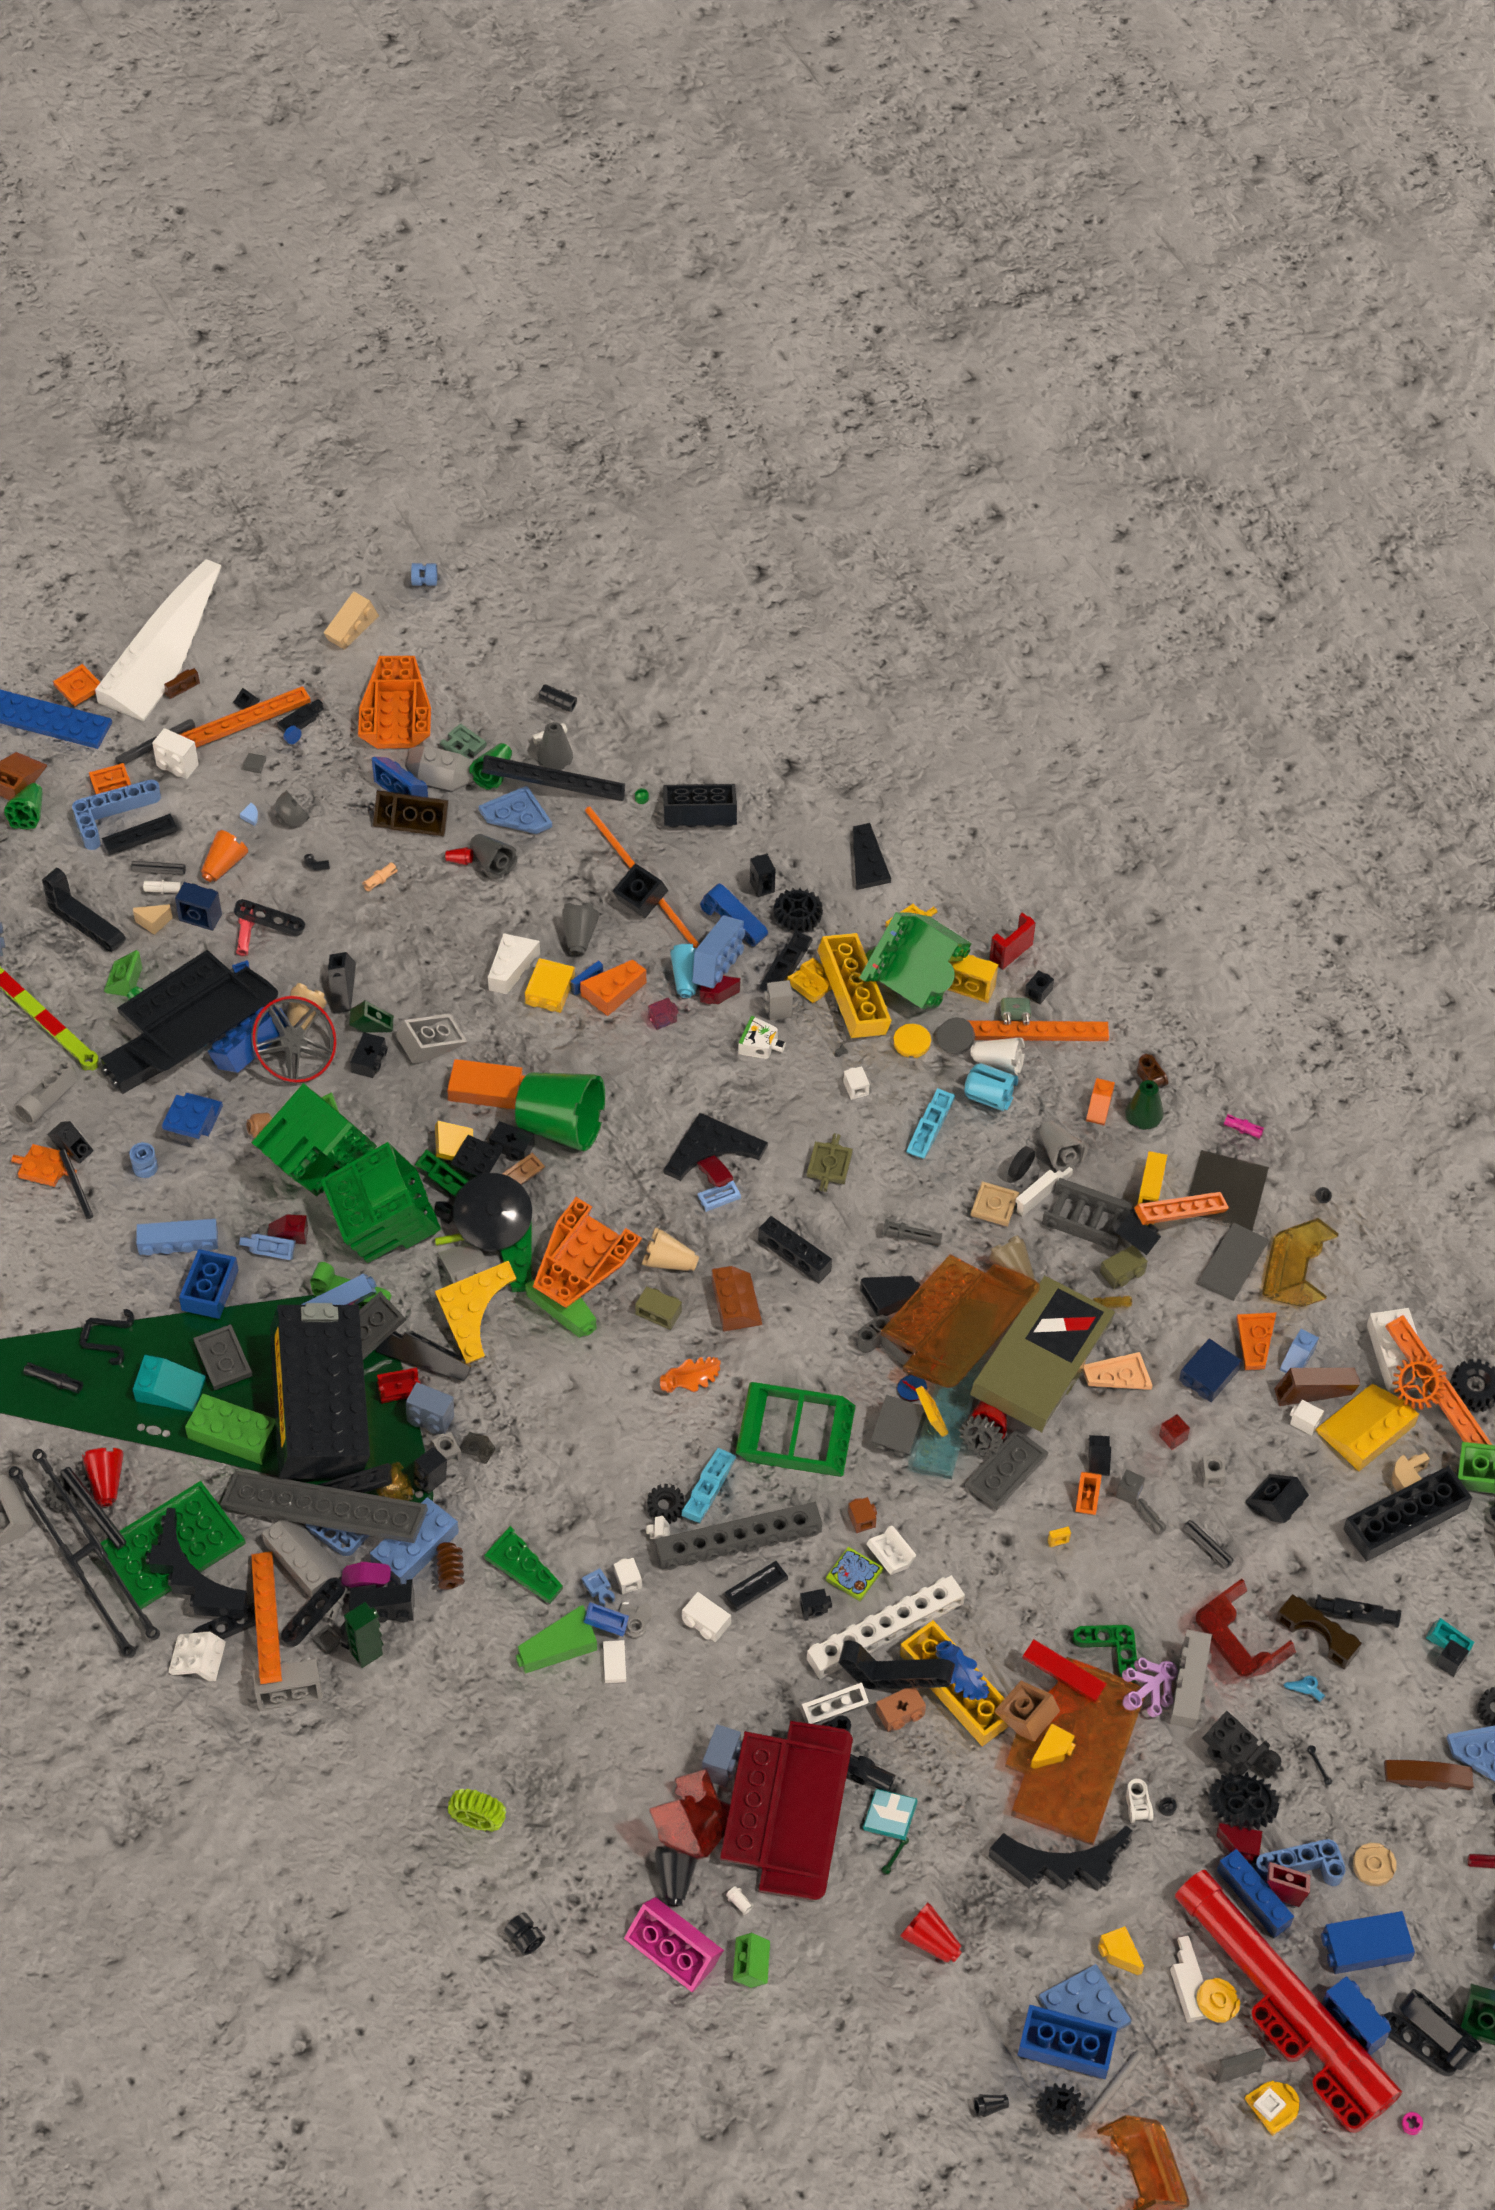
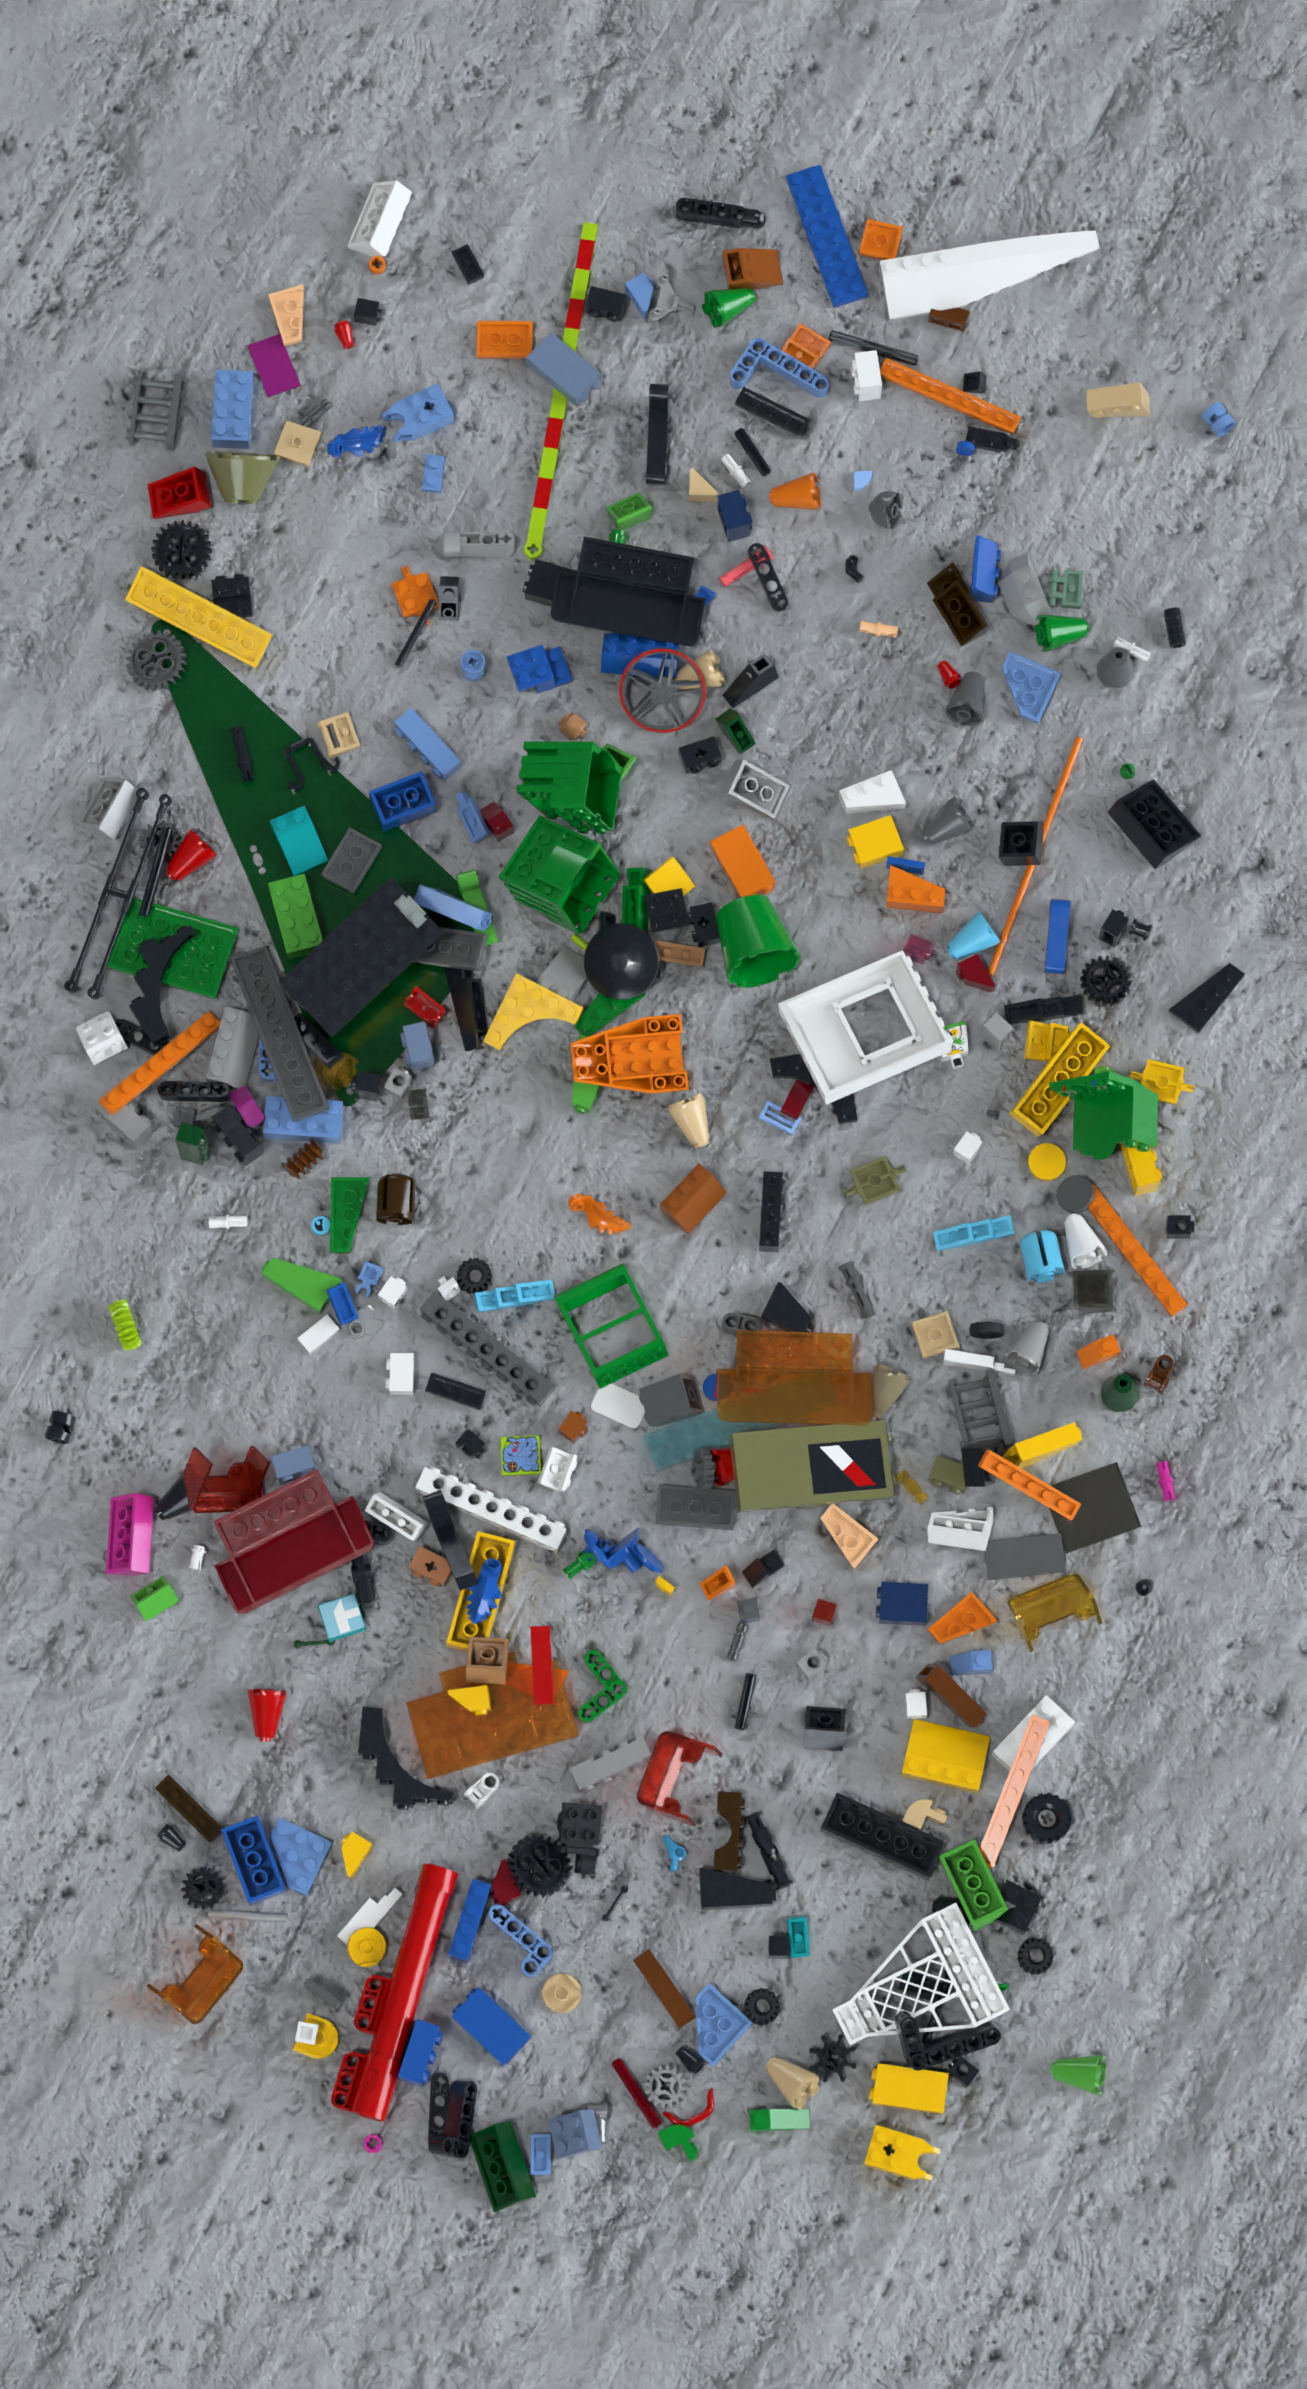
camera: 55 degrees right, 20 degrees up
(109, 1291) = (345, 734): none -> tan plate
(254, 763) = (915, 441): dark grey tile -> none
(395, 705) = (1059, 504): orange wedge -> none
(452, 1665) = (227, 1221): none -> white axle
(519, 1594) = (320, 1225): none -> medium azure tile
(549, 1515) = (396, 1199): none -> dark brown cylinder
(553, 778) = (1079, 690): black tile -> none
(658, 1307) = (639, 1147): olive brick -> none
(690, 1117) = (830, 1044): none -> white panel
(718, 951) = (1000, 951): medium blue brick -> none
(780, 862) = (1140, 929): none -> black bush
(869, 1471) = (619, 1405): none -> white sticker
(932, 1411) = (693, 1418): yellow tile -> none
(974, 2068) = (189, 1808): none -> dark brown plate
(1004, 1546) = (625, 1551): none -> blue piece
(1007, 950) = (1204, 1179): red panel -> none
(1015, 1009) = (1140, 1222): sand green piece -> none
(1047, 1071) = (1092, 1291): none -> clear smoke slope
(1165, 1672) = (584, 1737): lavender plant -> none
(1170, 1809) = (496, 1817): black hinge -> none
(1179, 1285) = (961, 1529): none -> white wedge
(1288, 1884) = (491, 1938): dark red slope -> none
(1374, 1663) = (731, 1891): none -> black slope
(1416, 1374) = (990, 1775): orange gear -> none

